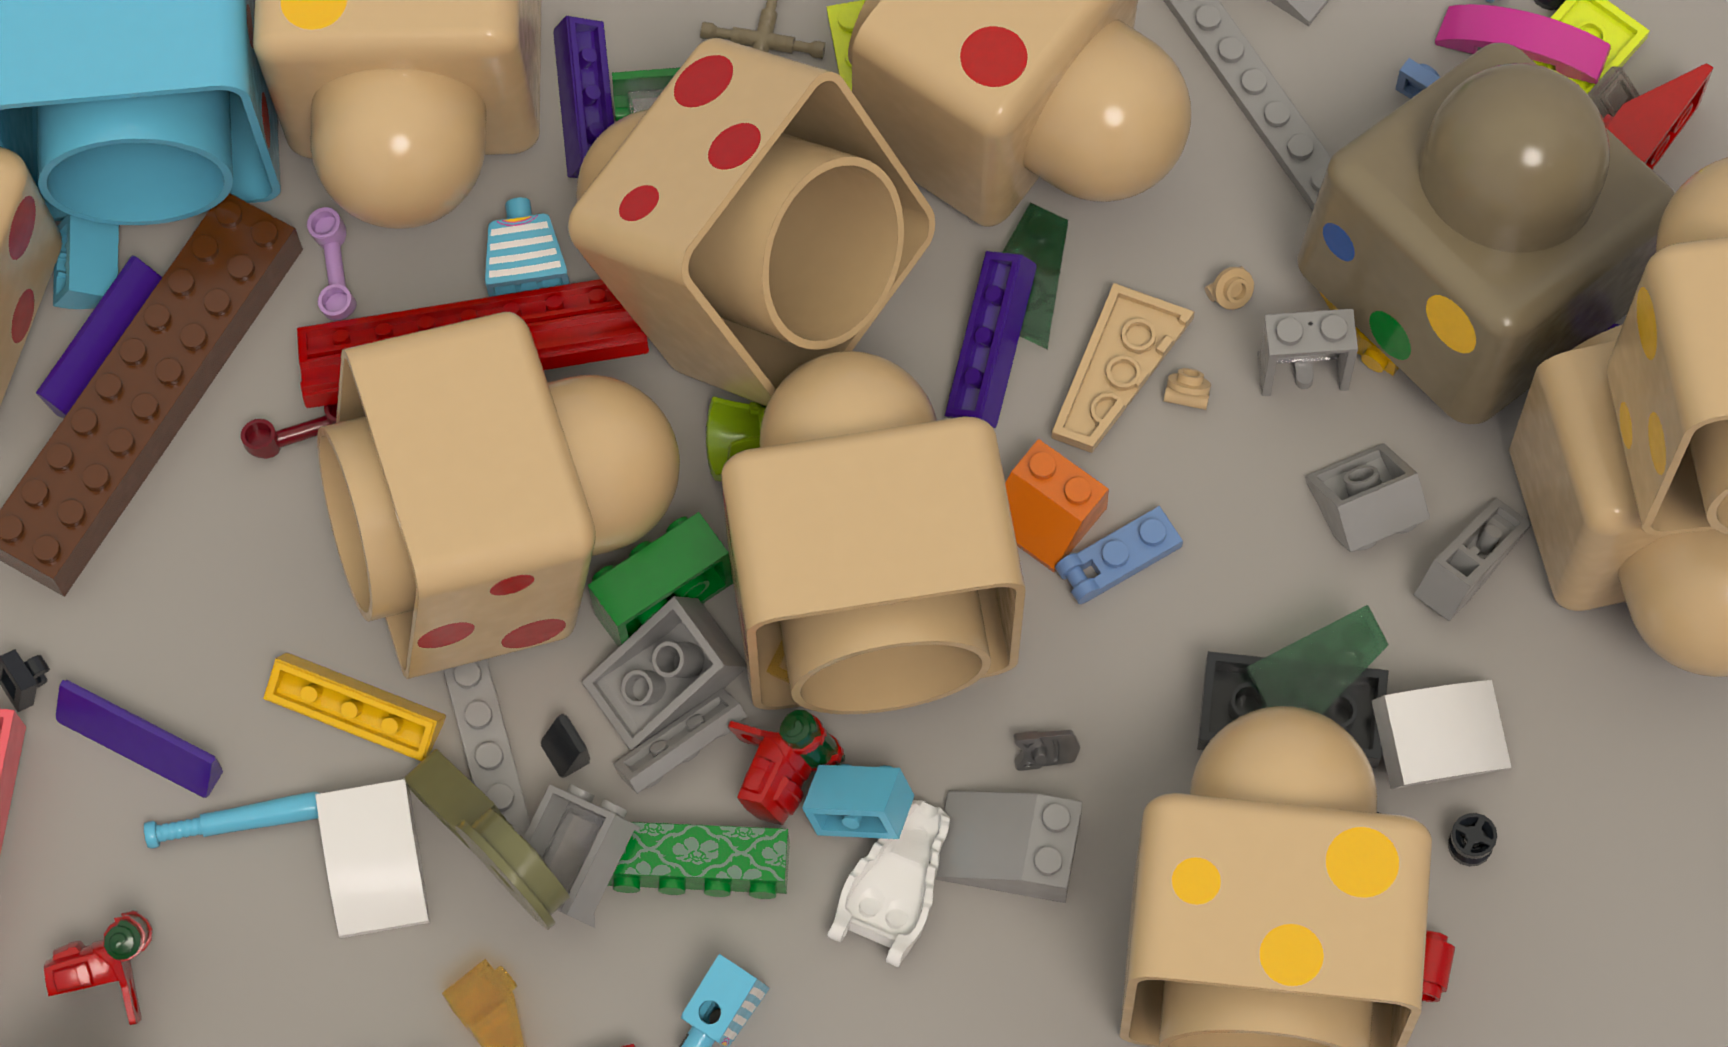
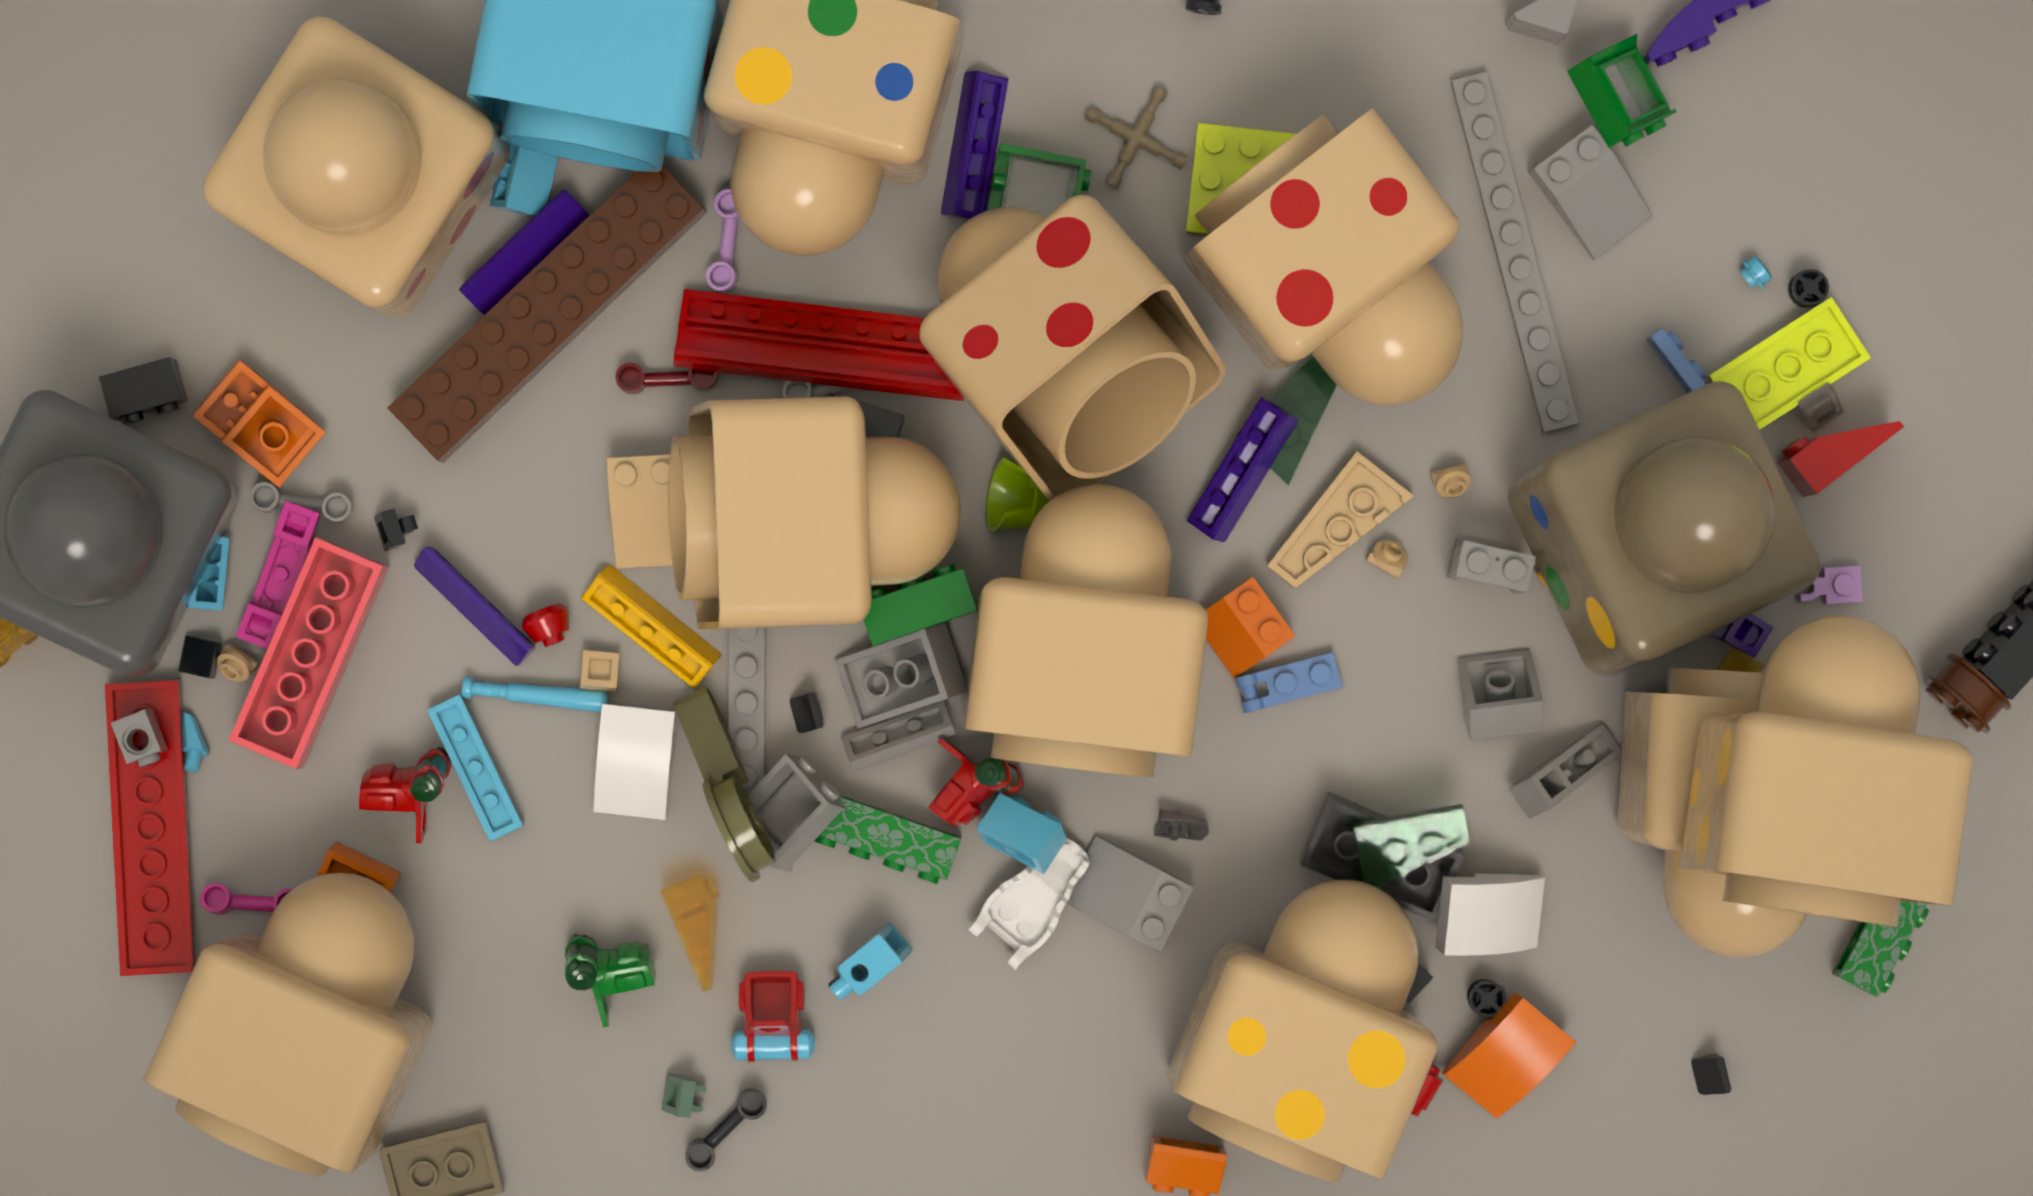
camera: 10 degrees right, 20 degrees up
(183, 923) = (475, 767): none -> medium azure plate
(228, 732) = (547, 624): none -> red cone
(304, 768) = (599, 670): none -> tan plate
(309, 577) = (640, 510): none -> tan slope
(523, 252) = (885, 278): medium azure torso -> none
(1523, 894) = (1508, 1056): none -> orange slope
(1539, 37) = (1763, 336): dark pink slope -> none

